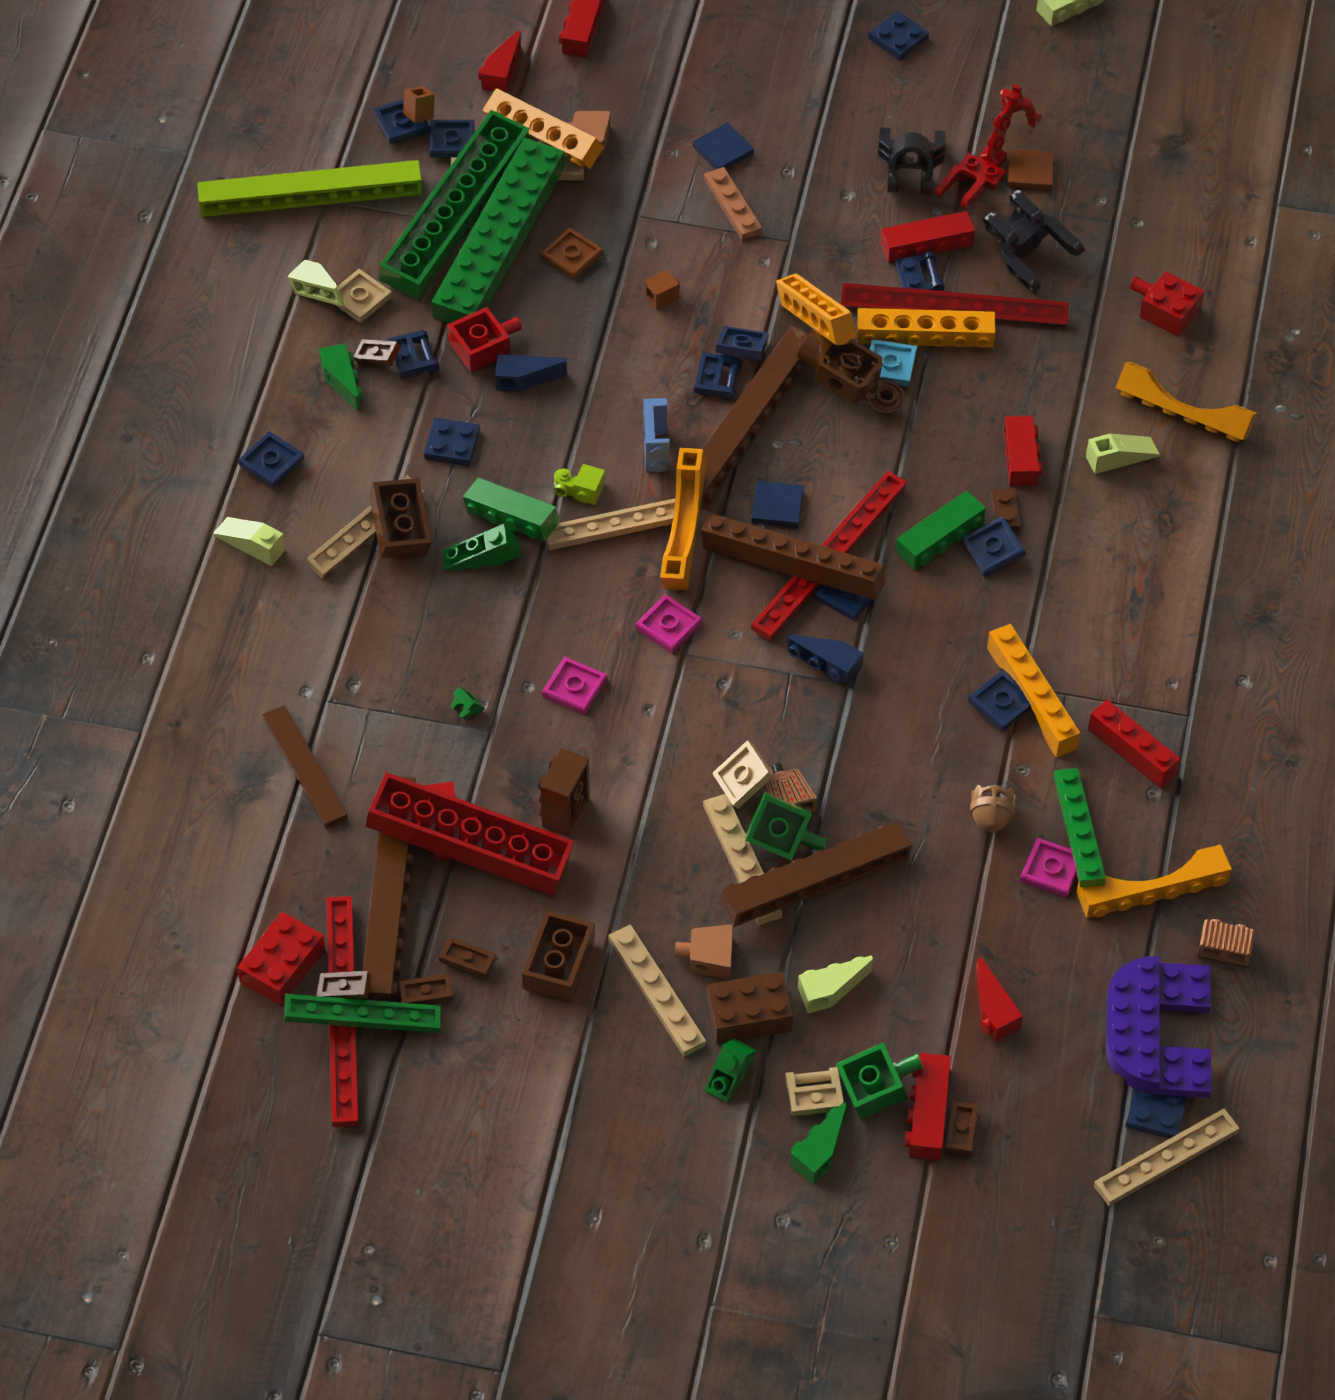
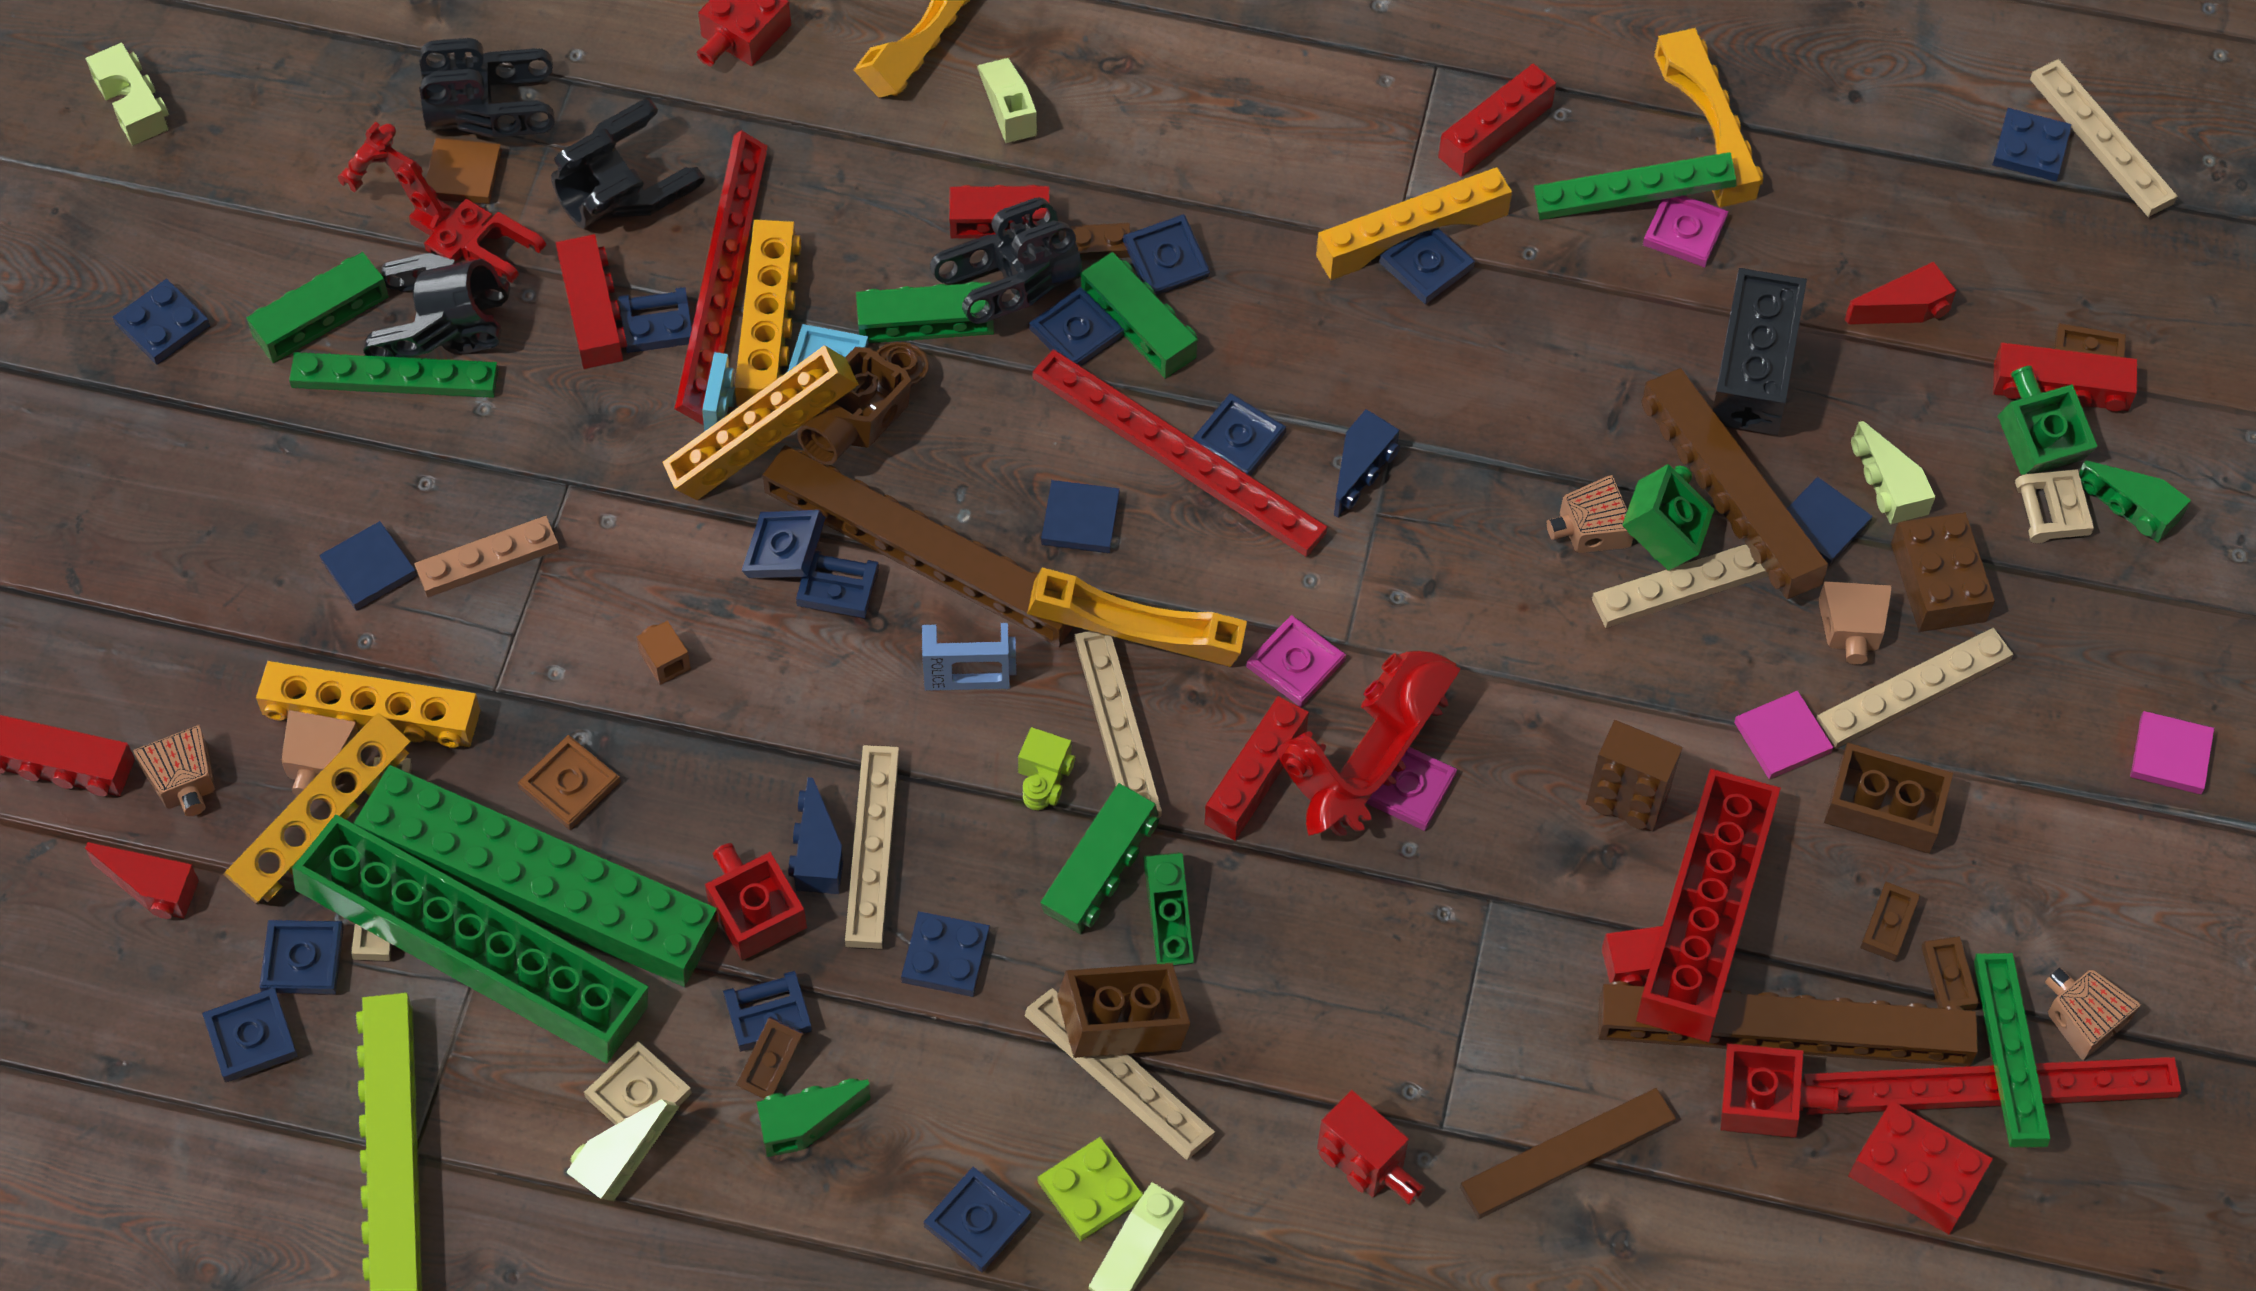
camera: 90 degrees left, 5 degrees up
(291, 516) = (1090, 1188): none -> lime plate
(303, 645) = (1366, 1149): none -> red brick
(336, 868) = (1767, 1091): none -> red brick
(344, 985) = (1976, 1069): plate -> none
(395, 1072) = (2089, 1010): none -> nougat torso
(419, 104) = (245, 990): dark orange brick -> none
(468, 701) = (1448, 921): green tile -> none
(525, 400) = (872, 847): none -> tan plate
(574, 72) = (179, 769): none -> nougat torso
(581, 595) = (1254, 769): none -> red brick
(605, 1152) = (2172, 752): none -> dark pink tile
(616, 905) = (1783, 735): none -> dark pink tile
(620, 153) = (284, 681): none -> light orange brick
(627, 666) = (1400, 706): none -> red piece
(730, 1069) = (2036, 597): green slope -> none
(743, 774) = (1574, 563): tan plate -> none
(793, 556) = (1200, 484): reddish brown brick -> none
(795, 941) = (1828, 518): none -> dark blue tile
(849, 294) = (719, 392): none -> medium azure plate
(866, 149) = (394, 375): none -> green plate
(911, 103) = (317, 307): none -> green brick
(920, 883) = (1759, 350): none -> black piece
(926, 496) = (1077, 328): none -> dark blue tile
(933, 413) = (918, 313): none -> green brick
(973, 461) = (1025, 254): none -> black piece
(992, 812) = (1613, 277): medium nougat helmet -> none
(1087, 162) = (459, 89): none -> black piece
(1133, 1027) = (1962, 148): dark purple plate -> none
(1226, 942) = (1792, 50): nougat brick -> none

